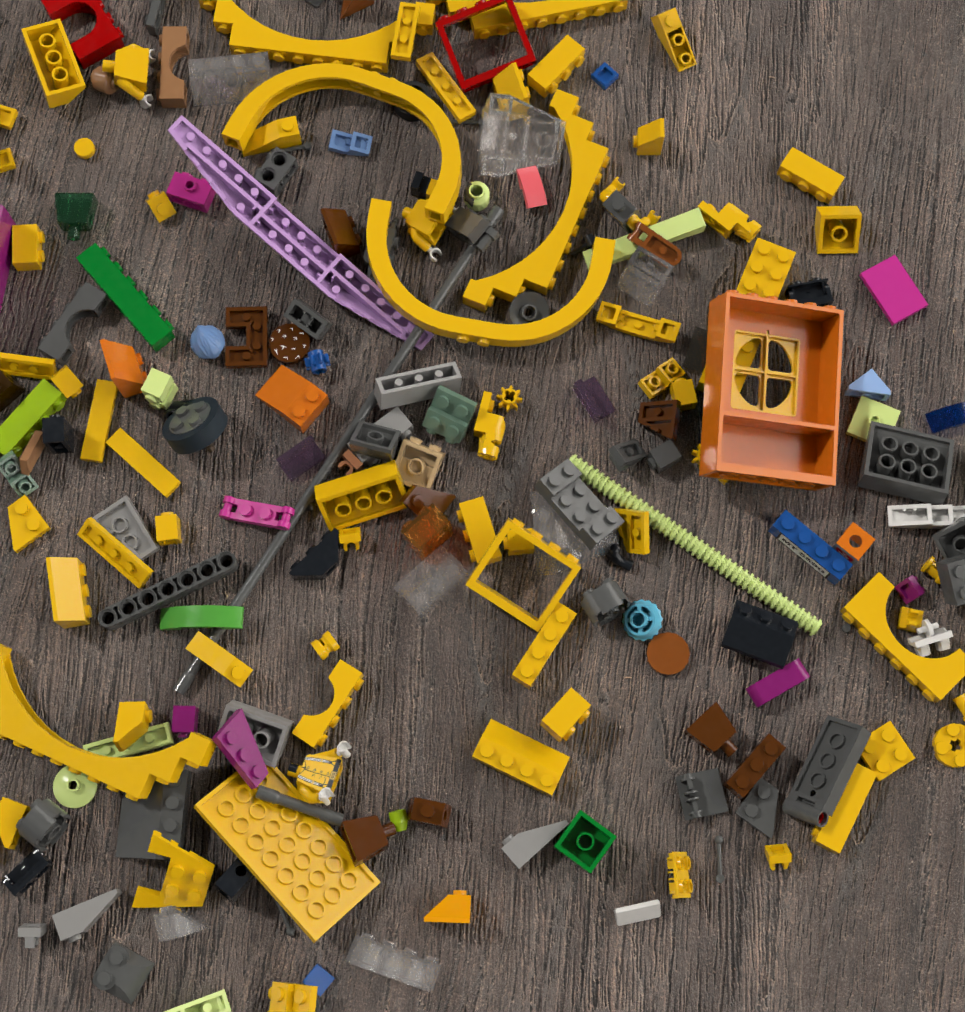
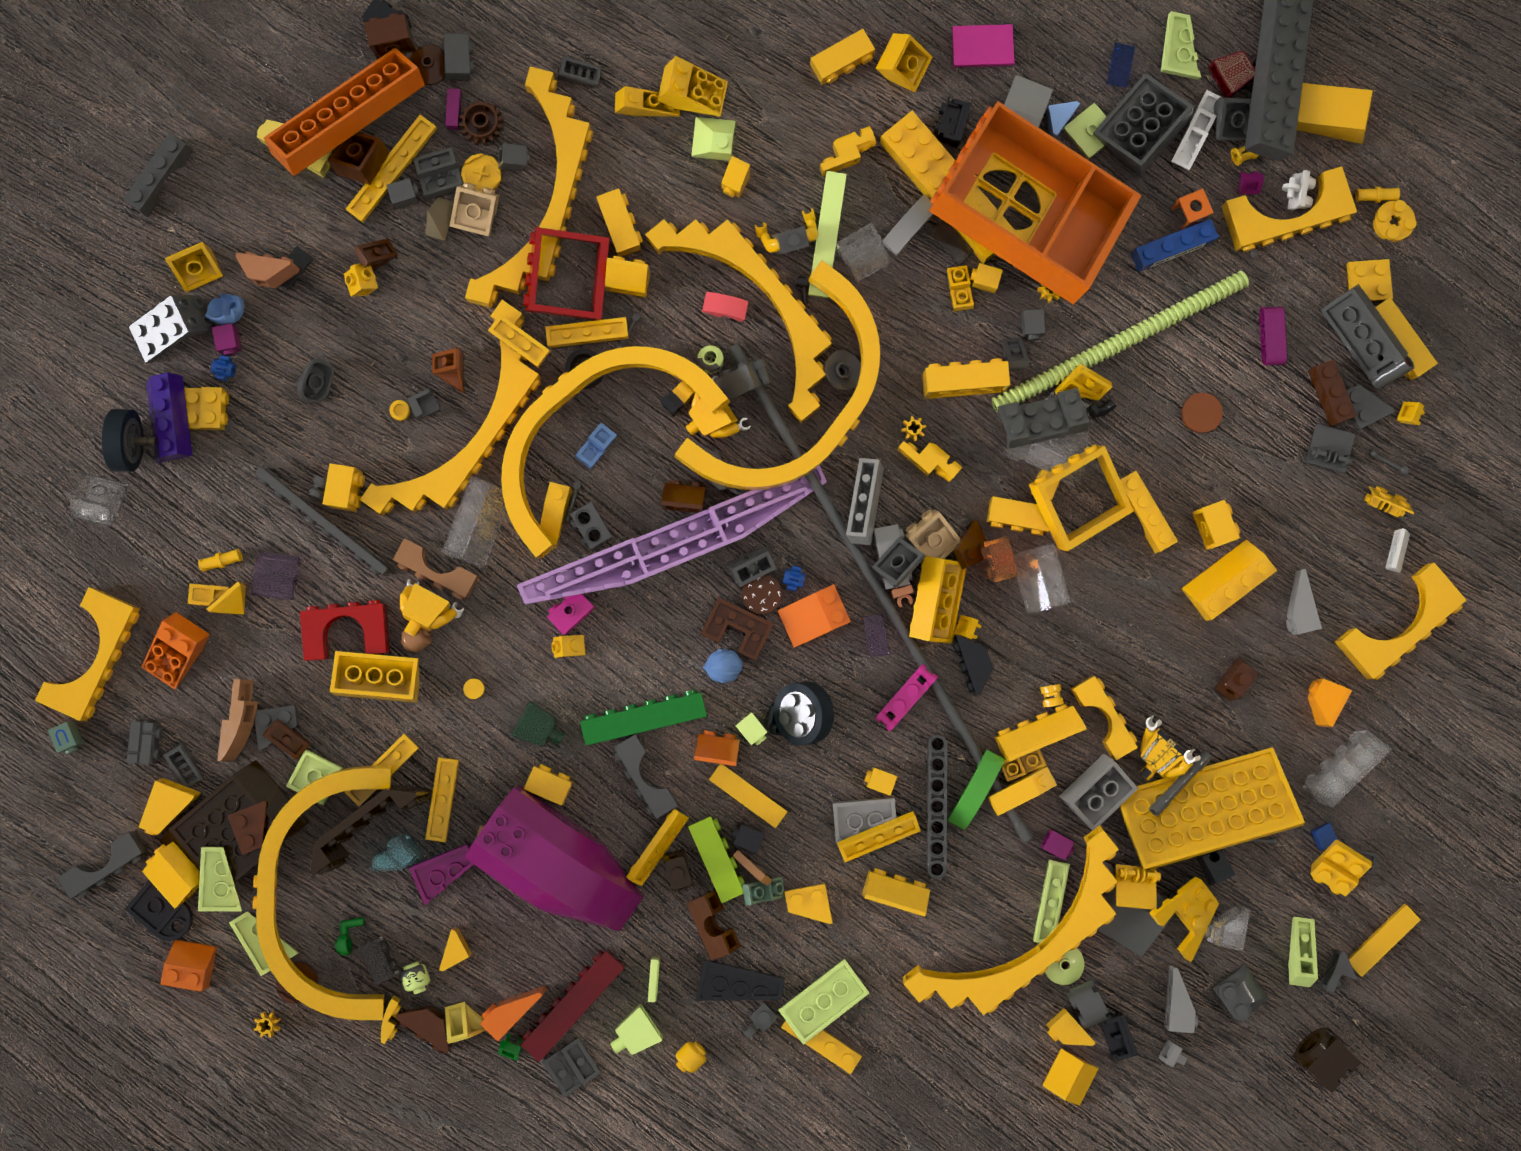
camera: 65 degrees left, 10 degrees up
(67, 382) = (699, 808): yellow brick -> none
(131, 723) = (1039, 890): yellow slope -> none
(143, 462) = (806, 774): yellow tile -> none
(174, 807) = (1136, 887): none -> yellow hinge
(241, 750) = (1114, 808): magenta wing -> none
(248, 652) = (1023, 765): none -> yellow slope
(282, 648) = (1040, 732): none -> yellow slope
(366, 837) = (1233, 741): reddish brown torso -> none
(399, 818) = (1228, 706): lime hose -> none
(449, 415) = (904, 488): sand green plate -> none
(517, 136) = (674, 295): clear wedge -> none
(577, 418) = (965, 379): none -> yellow brick
(584, 842) = (1326, 563): green brick -> none
(593, 398) = (948, 353): clear purple panel -> none
(604, 76) = (649, 184): blue tile -> none
(604, 602) = (1137, 441): dark grey brick -> none
(607, 975) = (1436, 602): none -> yellow arch
(636, 324) = (902, 281): yellow slope -> none
(642, 620) = (1164, 418): medium azure piece -> none
(655, 244) = (842, 227): dark orange plate -> none
(661, 417) = (999, 308): reddish brown wing -> none
(676, 108) = (713, 138): none -> yellowish green slope
(685, 302) = (909, 226): none -> light grey slope
(707, 67) = (691, 88): none -> yellow slope
(713, 731) = (1285, 410): reddish brown torso -> none
(759, 634) = (1228, 328): black slope -> none
(864, 351) = (1028, 99): none -> light grey slope
(909, 619) = (1273, 197): yellow tile -> none

